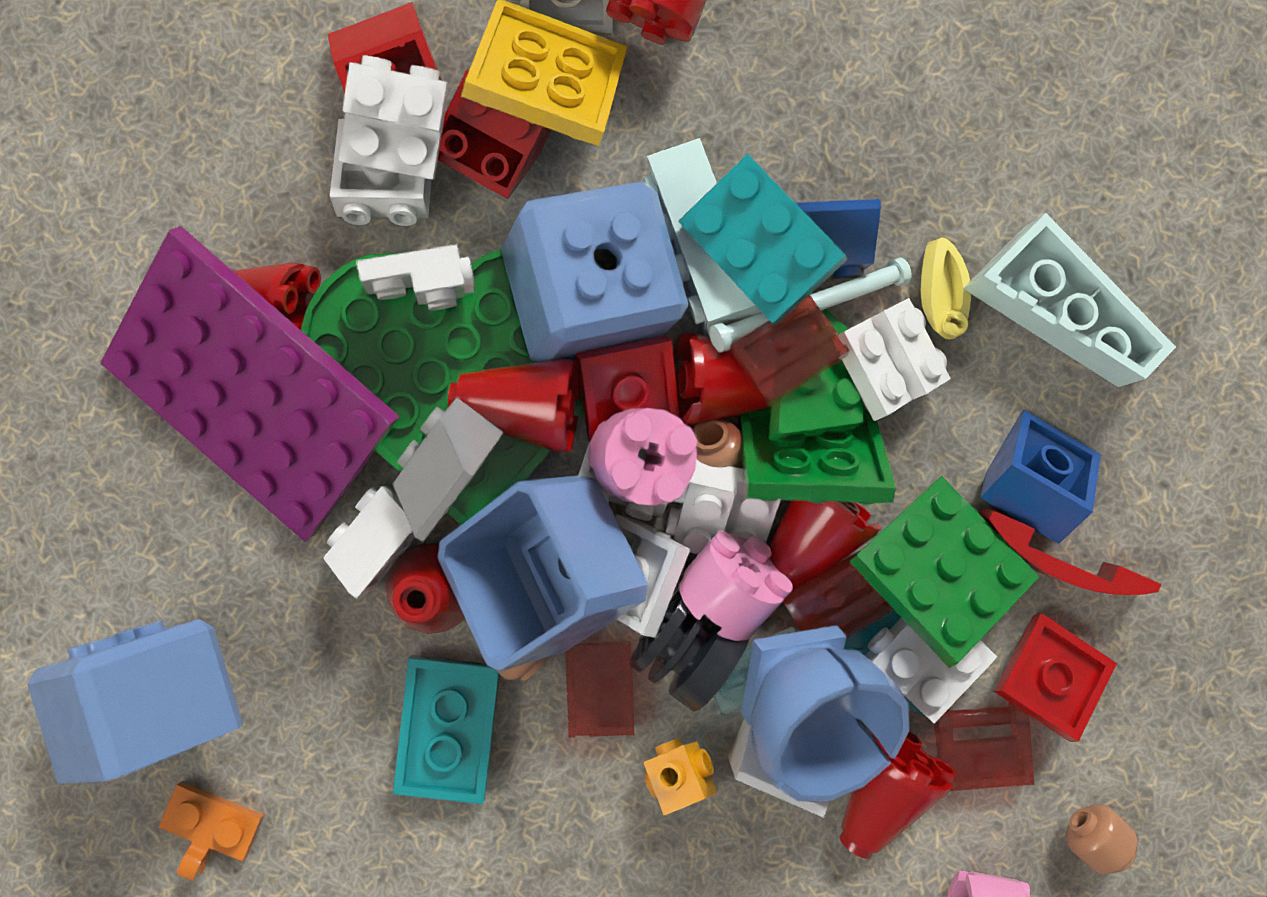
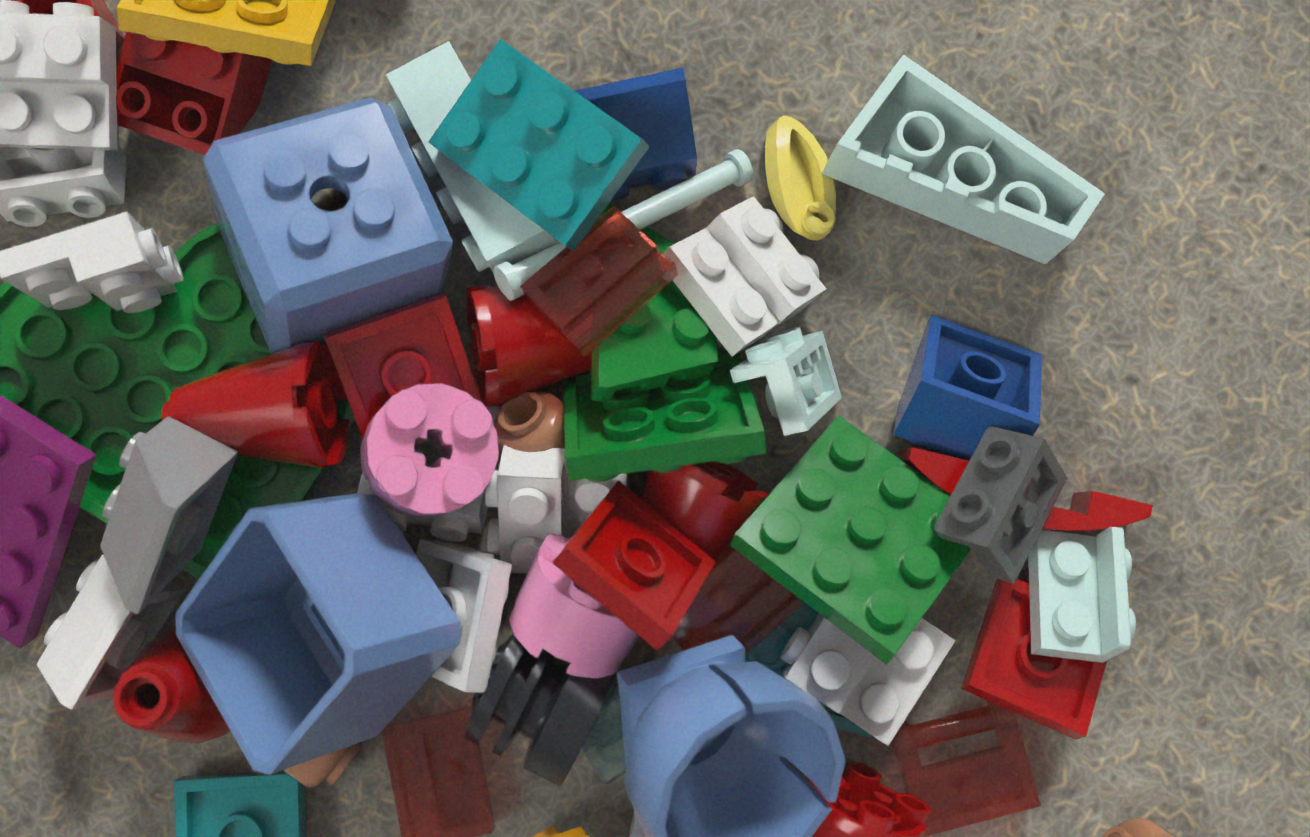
camera: 10 degrees left, 5 degrees down
(783, 566) = (636, 565): none -> red plate
(920, 441) = (798, 377): none -> light aqua bracket
(1054, 562) = (1003, 500): none -> dark grey bracket
(1094, 638) = (1080, 595): none -> light aqua bracket

